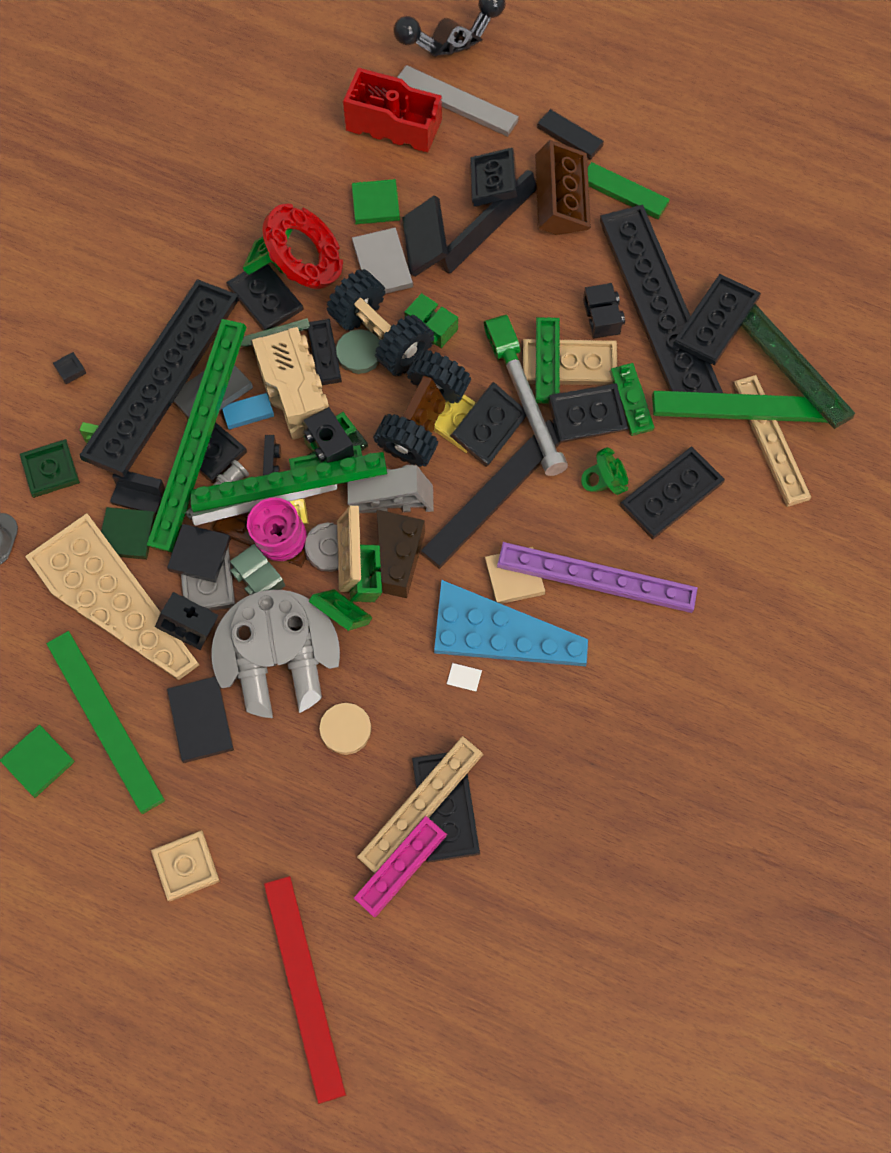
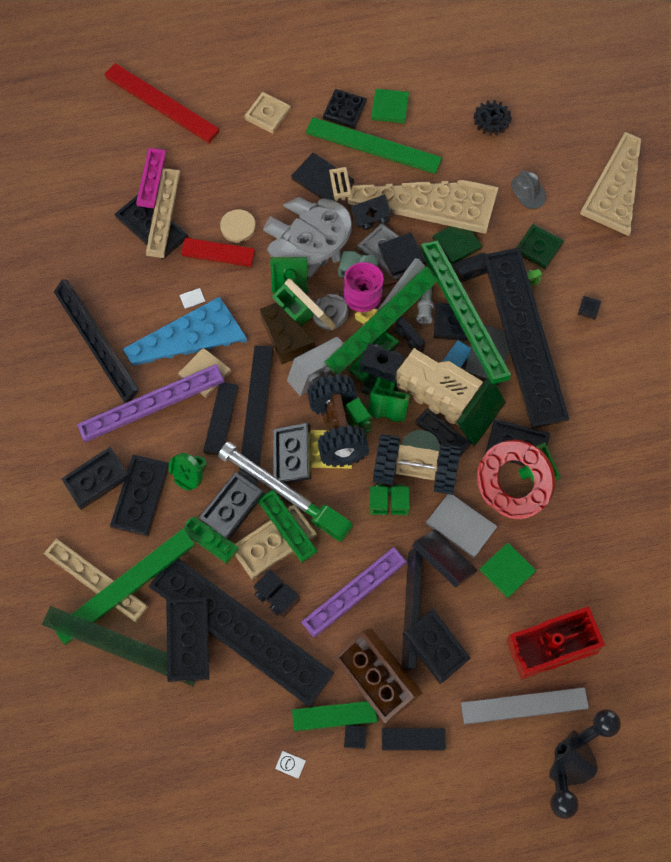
camera: 145 degrees right, 0 degrees up
(90, 799) = (344, 108): none -> black tile
(197, 692) = (342, 194): none -> tan tile
(355, 403) = (388, 404): none -> green brick
(394, 711) = (218, 252): none -> red tile
(397, 397) = (358, 415): none -> green brick
(528, 272) = (353, 592): none -> medium lavender tile
(534, 512) = (221, 418): none -> black tile
(611, 697) = (96, 341): none -> black plate
(619, 164) = (355, 737): none -> black plate
(690, 183) = (290, 764): none -> white sticker
(709, 536) = (95, 478): none -> black tile

